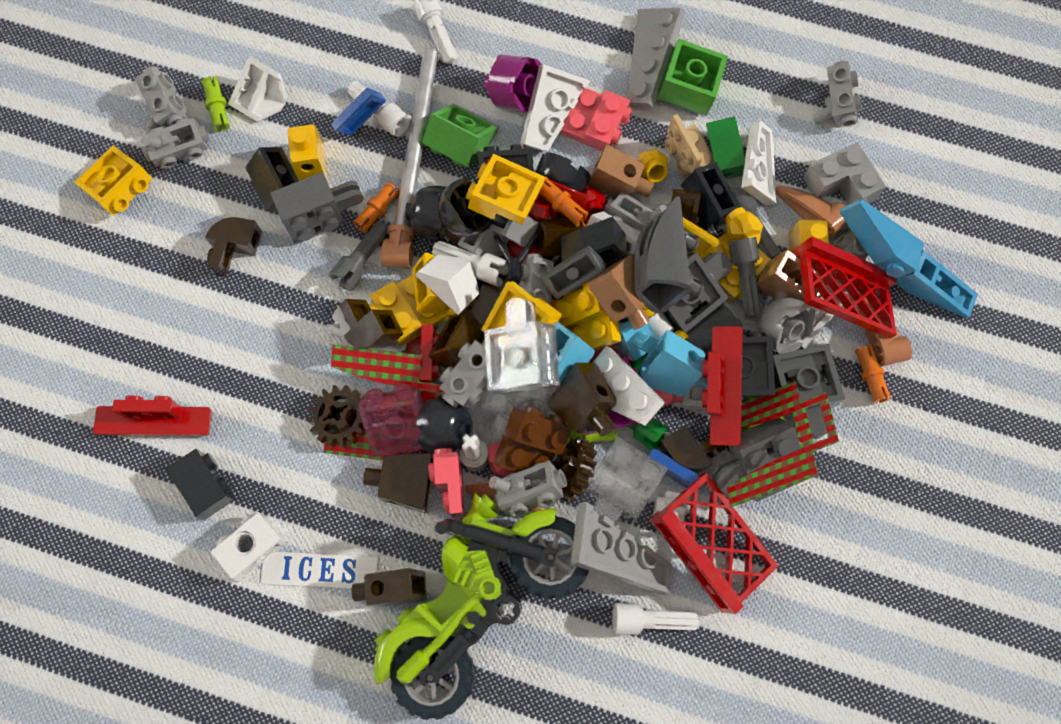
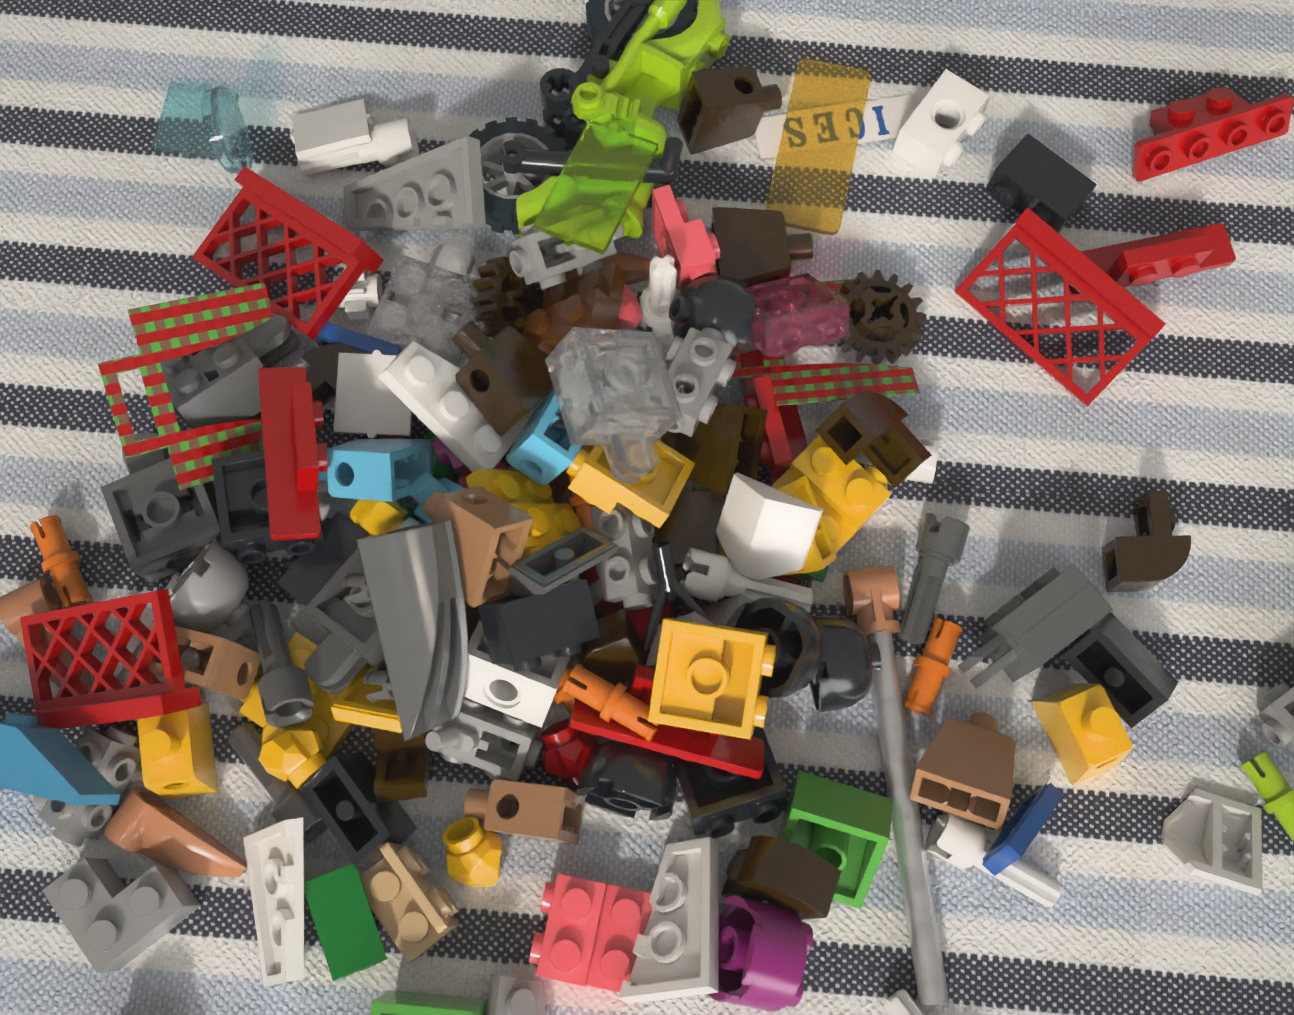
camera: 165 degrees right, 0 degrees up
(71, 507) = (1207, 129): none -> red bracket
(203, 413) = (1085, 278): none -> red fence
(335, 556) = (818, 145): none -> clear yellow piece
(375, 145) = (968, 771): none -> medium nougat torso
(493, 112) = (783, 877): none -> dark brown brick
(499, 513) = (596, 186): none -> clear neon green piece
(670, 428) = (365, 402): none -> white piece
(671, 641) = (331, 129): none -> white piece
(744, 647) = (231, 136): none -> clear light blue tile
(767, 678) = (182, 123): none -> clear light blue piece

